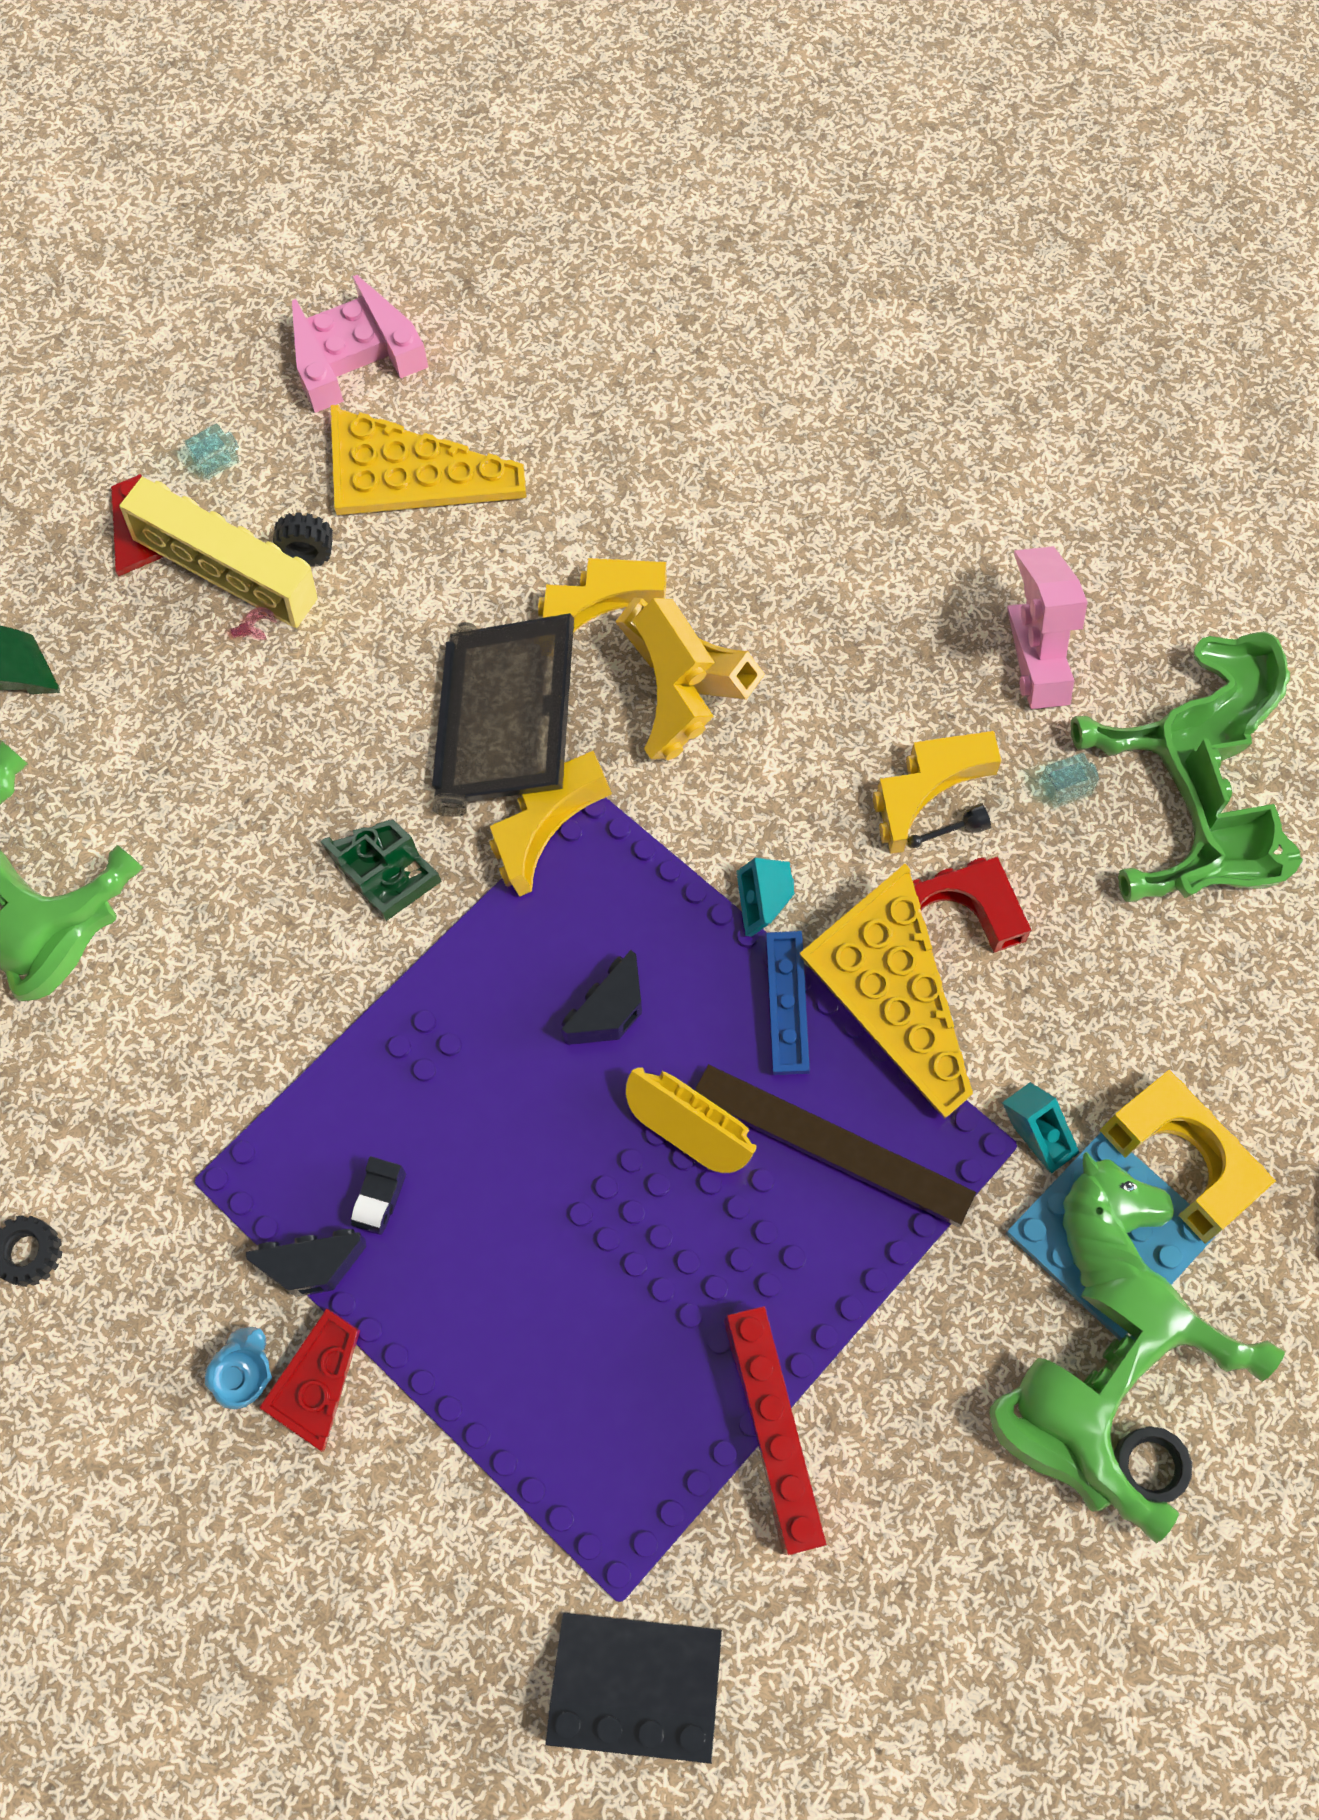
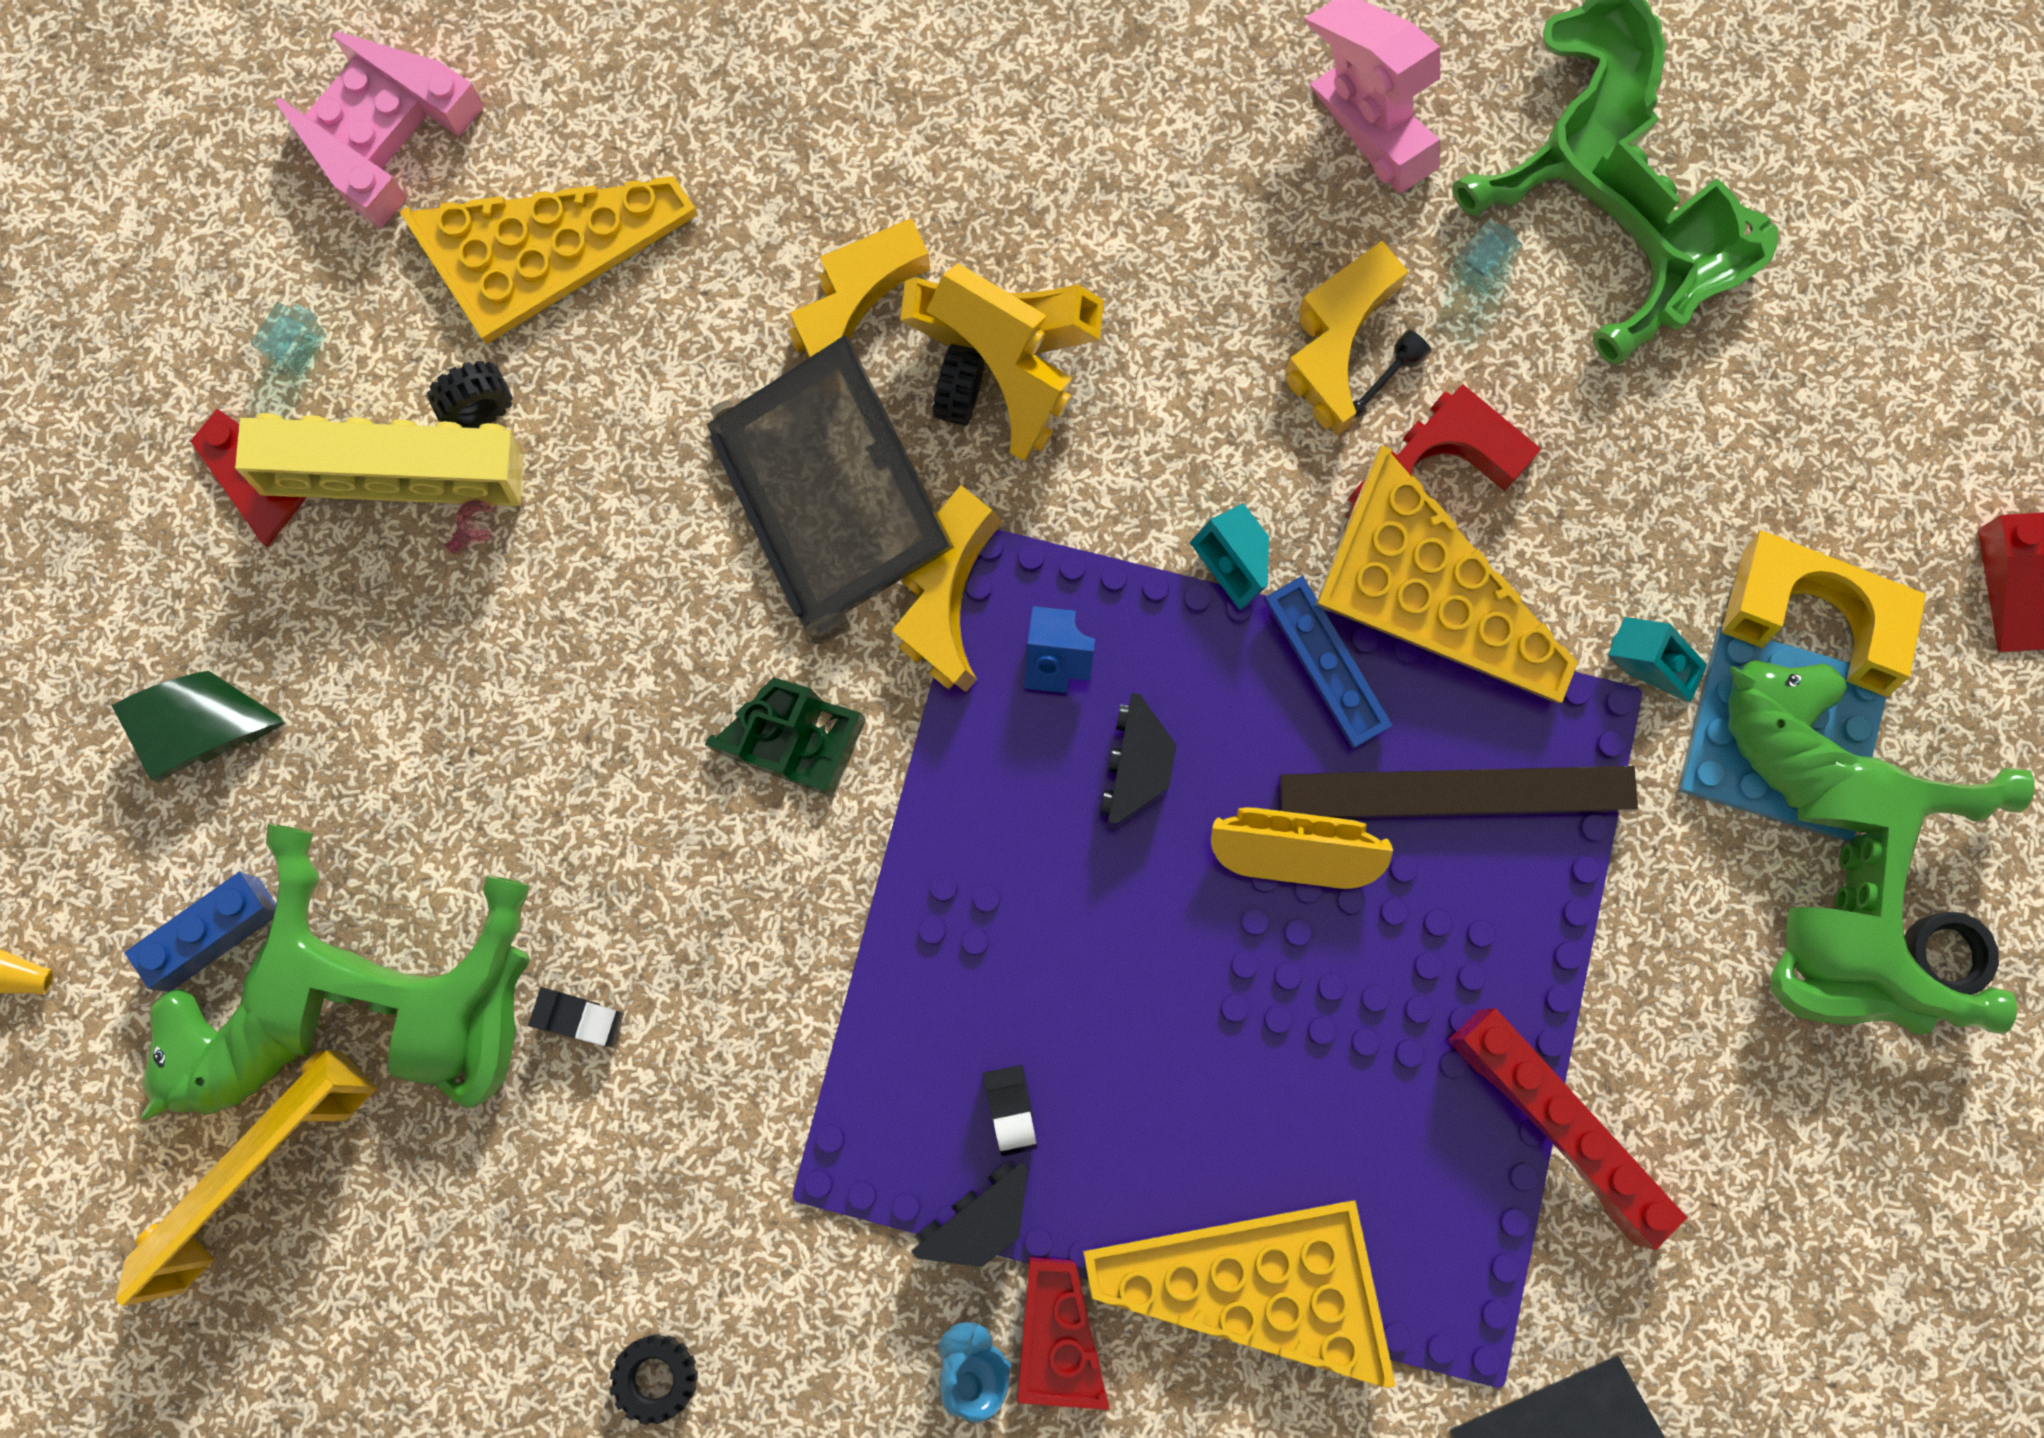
camera: 30 degrees left, 10 degrees up
(123, 977) = (575, 1017): none -> black leg
(485, 1420) = (1268, 1282): none -> yellow wing
(595, 896) = (1056, 651): none -> blue brick
(632, 687) = (958, 385): none -> black tyre

